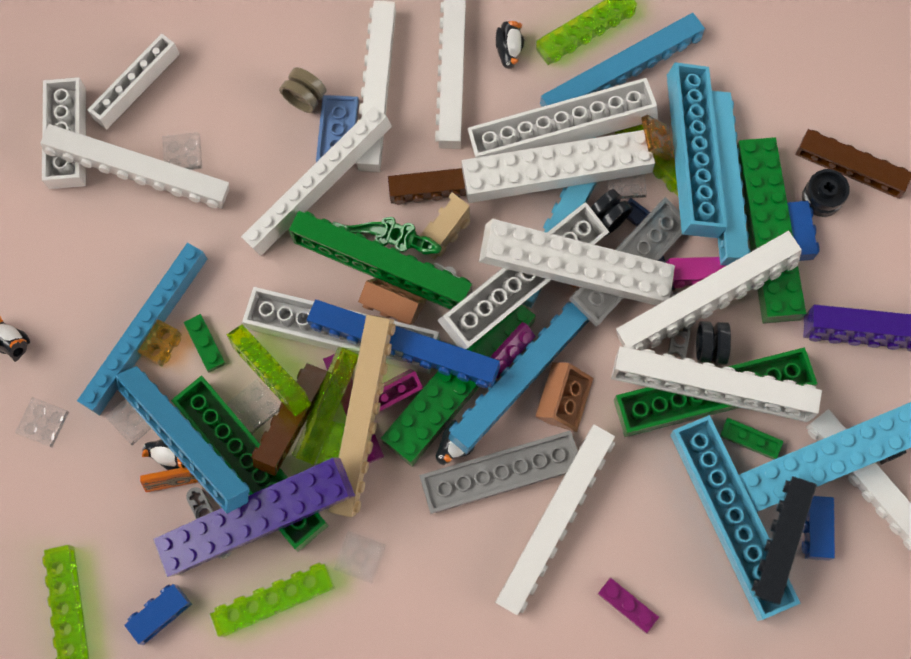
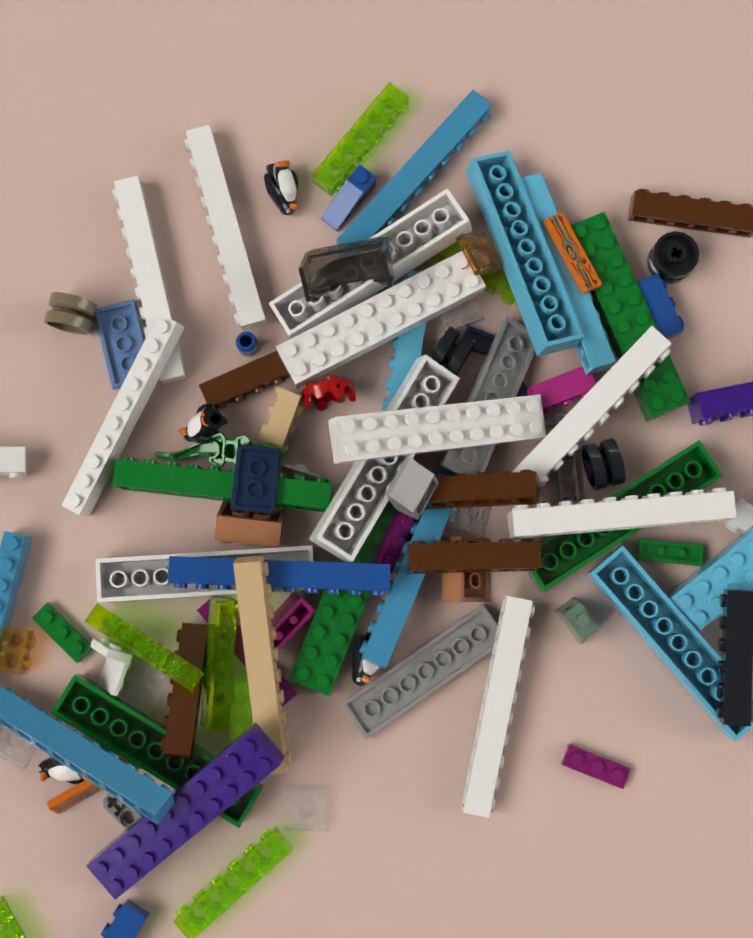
camera: 25 degrees left, 10 degrees up
(241, 378) = (115, 666): none -> white bracket
(380, 208) = (203, 424): none -> black animal
(409, 260) = (256, 479): none -> dark blue tile
(439, 156) = (244, 338): none -> blue brick
(493, 208) = (329, 390): none -> red plate
(538, 303) = (411, 488): none -> light grey slope
(541, 113) = (346, 264): none -> clear smoke windscreen
(563, 68) = (349, 197): none -> slope
(575, 381) = (473, 557): none -> reddish brown brick
(585, 348) = (471, 520): none -> clear plate
(590, 324) = (485, 490): none -> reddish brown brick
(651, 471) = (577, 619): none -> sand green torso
(738, 161) = (572, 253): none -> orange tile

